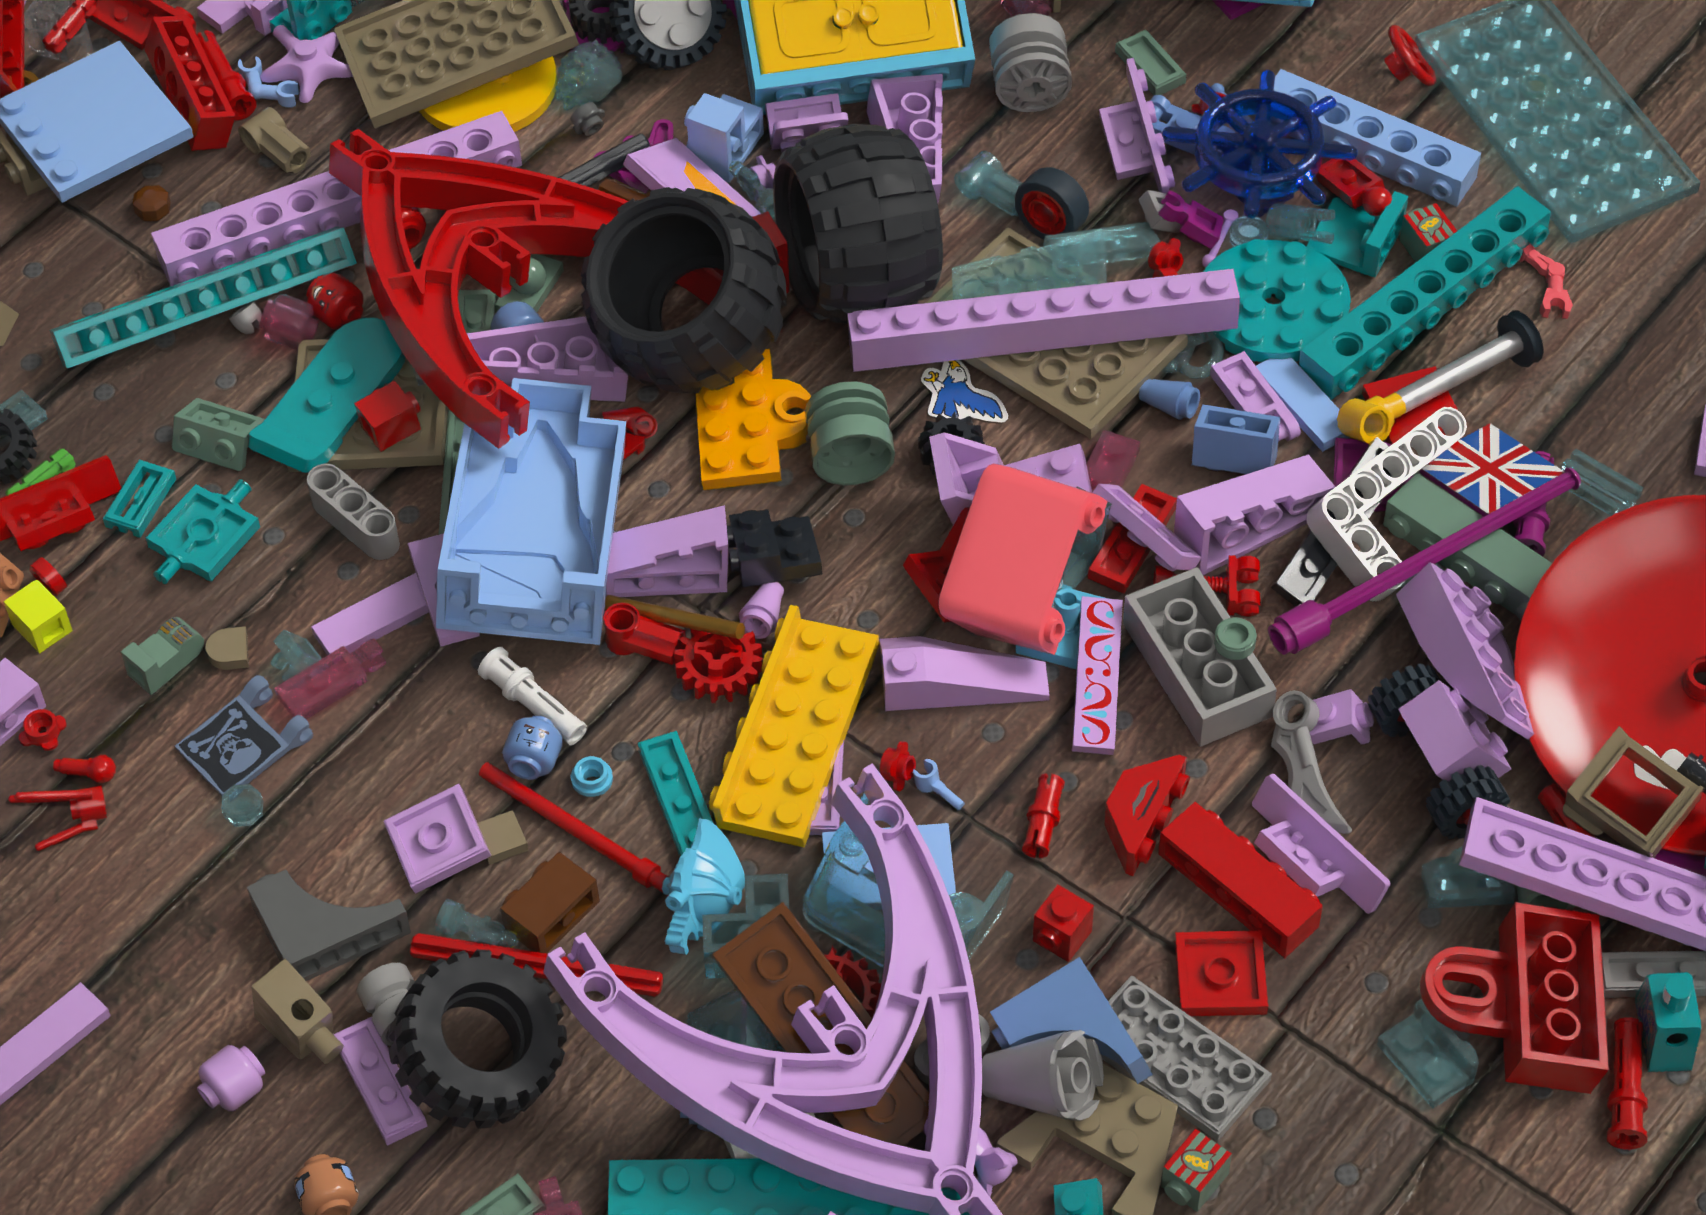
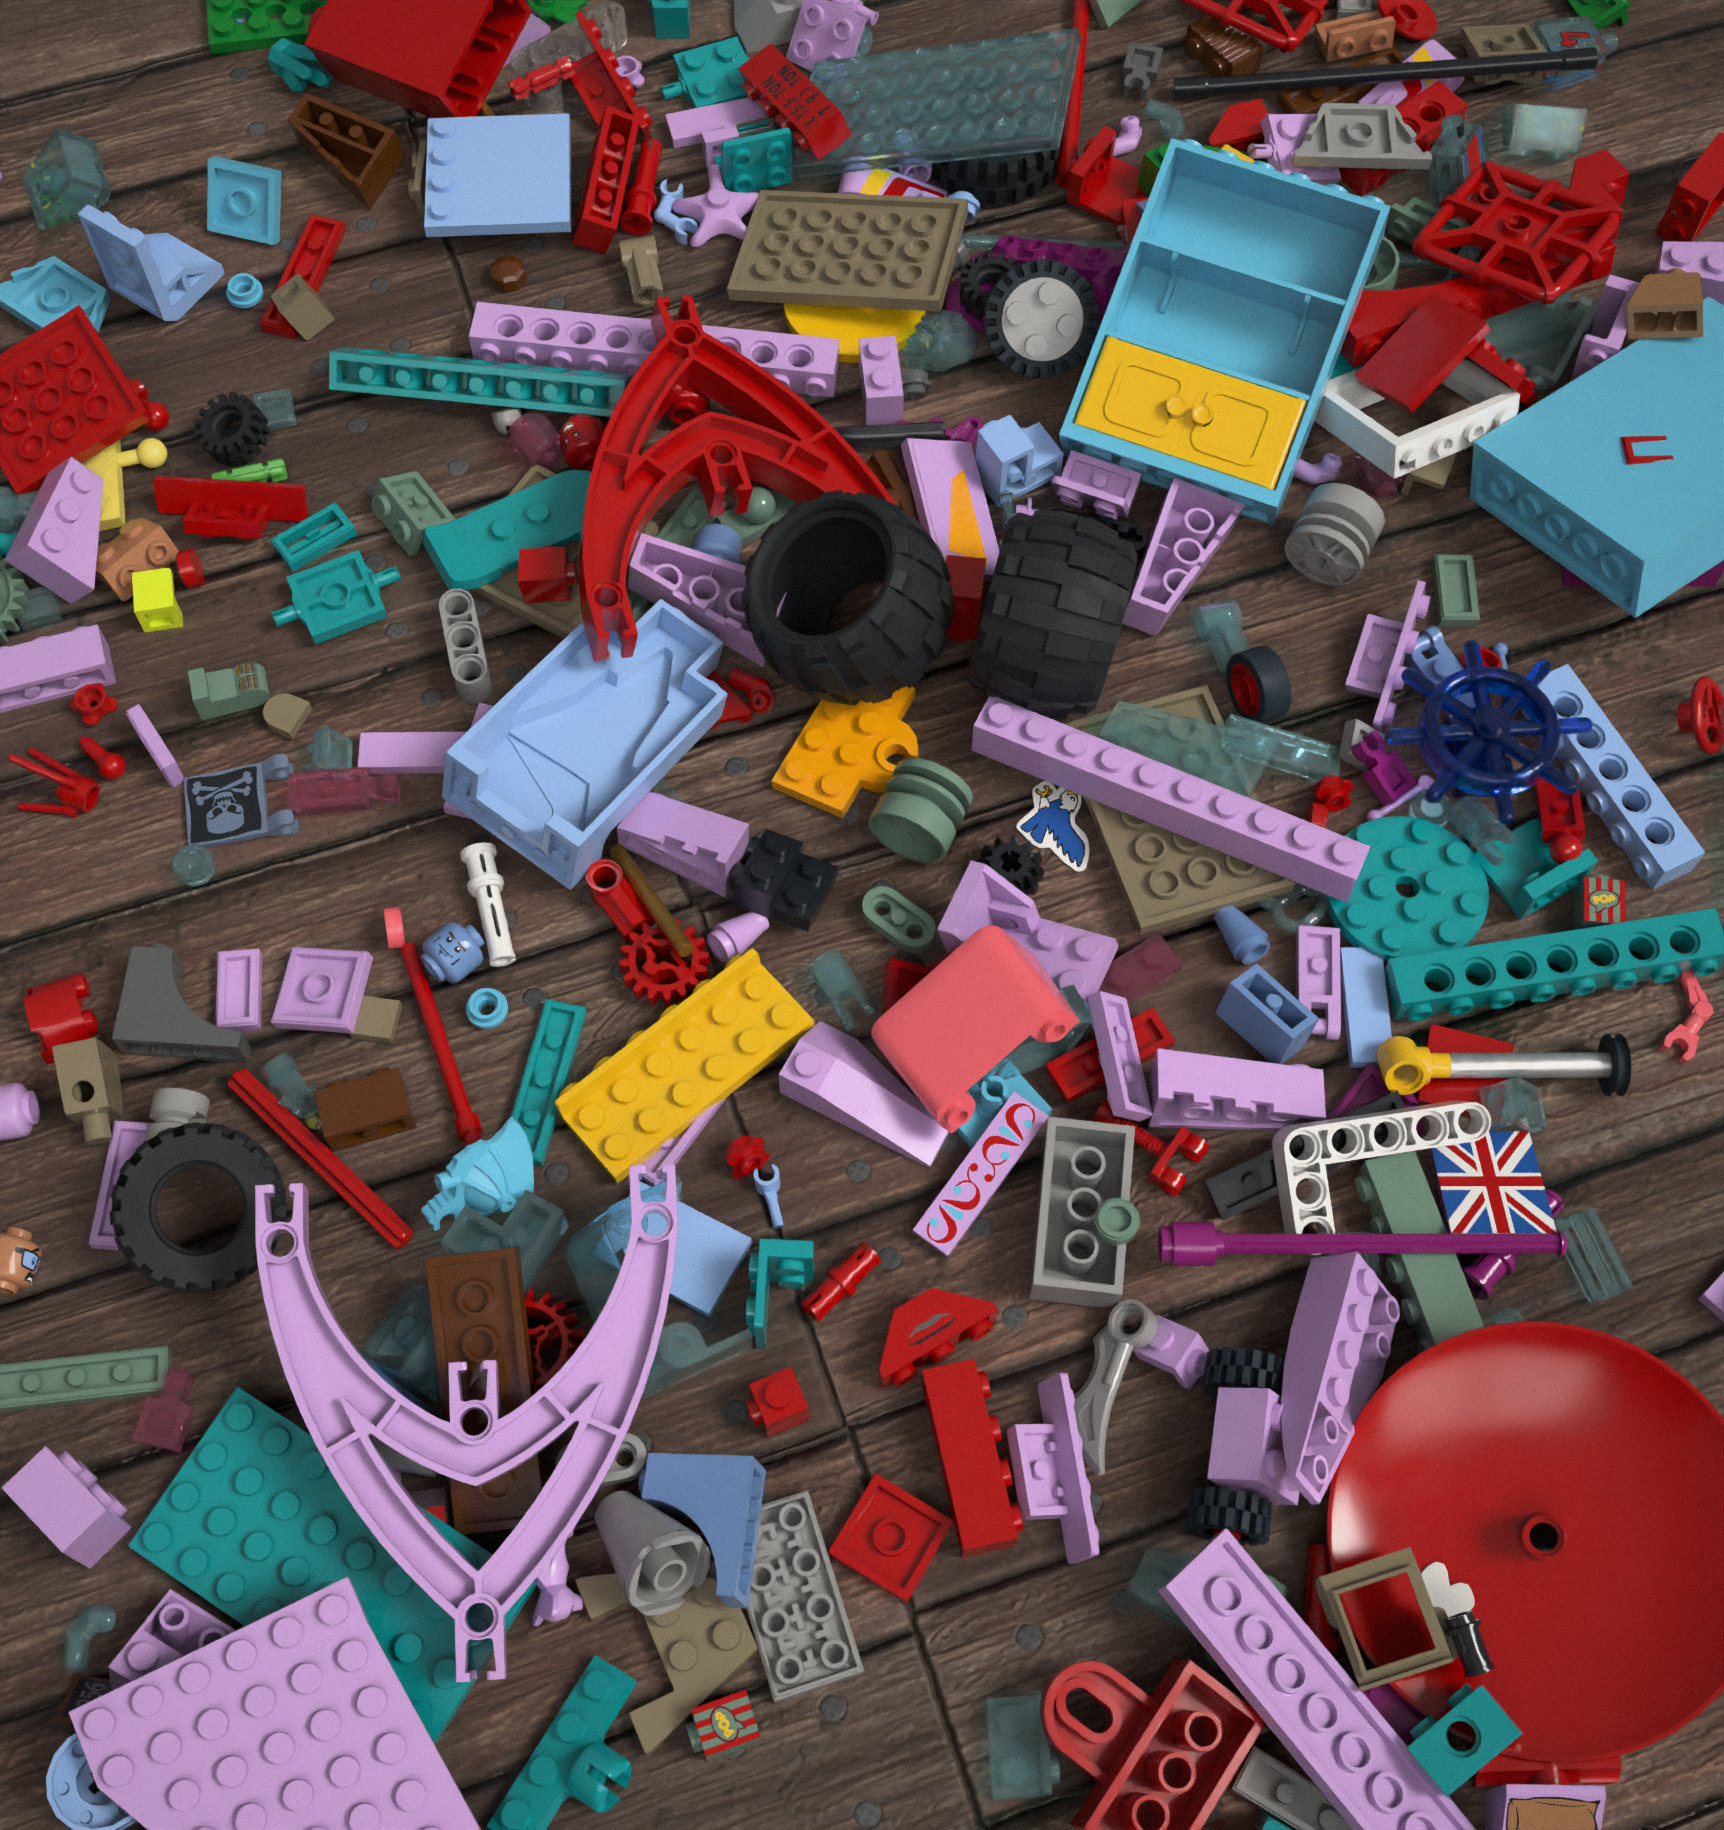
camera: 30 degrees right, 10 degrees up
(132, 730) = (155, 746): none -> lavender tile
(217, 982) = (59, 1013): none -> red cylinder
(358, 876) = (239, 990): none -> lavender tile
(463, 757) = (394, 927): none -> coral tile
(559, 128) = (881, 380): none -> lavender brick
(875, 600) = (838, 984): none -> clear light blue hinge
(888, 529) = (900, 920): none -> sand green plate
(982, 22) = (1319, 472): none -> lavender arm
(991, 825) = (781, 1261): none -> teal bracket
(1469, 404) = (1514, 1103): none -> clear light blue bracket

